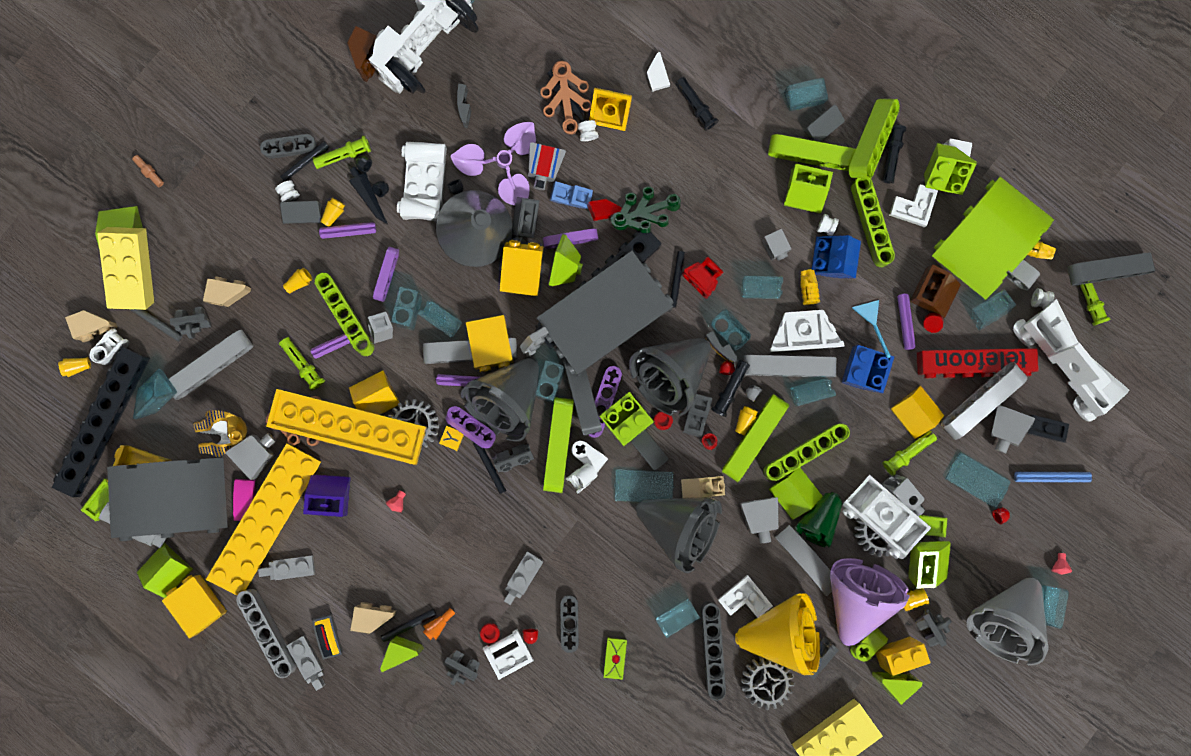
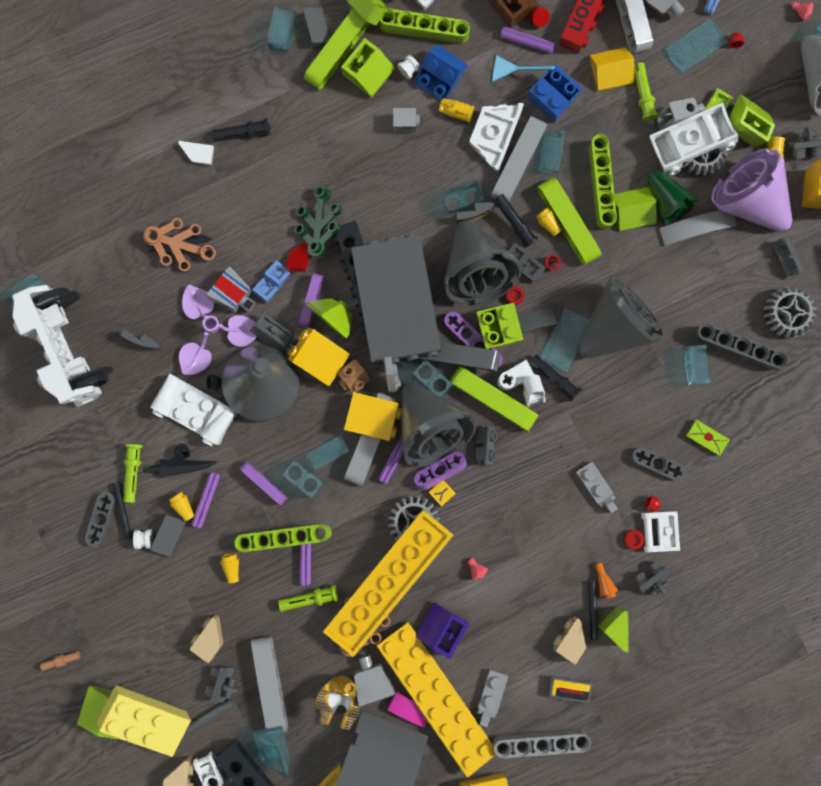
camera: 55 degrees left, 0 degrees up
(307, 662) = (584, 718): light grey hinge -> none
(361, 47) = (46, 406): reddish brown slope -> none
(363, 163) = (151, 457): black hinge -> none
(374, 394) = (369, 545): yellow slope -> none
(380, 327) = (310, 510): light grey brick -> none
(490, 468) = (485, 470): black bar -> none
(518, 308) = (353, 377): none -> medium nougat brick
(587, 130) = (220, 238): white wheel -> none
(602, 500) = (562, 383): none -> black pin
(610, 109) = (210, 209): yellow slope -> none
(677, 277) = (388, 220): black bar -> none
(701, 278) = (404, 200): red piece -> none
(703, 487) = (591, 287): tan slope -> none
(726, 368) = (494, 216): red hinge -> none
(745, 592) = (702, 295): white plate -> none
(753, 392) = (527, 203): light grey hinge -> none
(761, 517) = (641, 248): light grey torso -> none
(762, 287) = (436, 151): clear light blue hinge -> none
(785, 635) = (757, 277): yellow cone -> none
(870, 645) = (799, 208): lime piece -> none

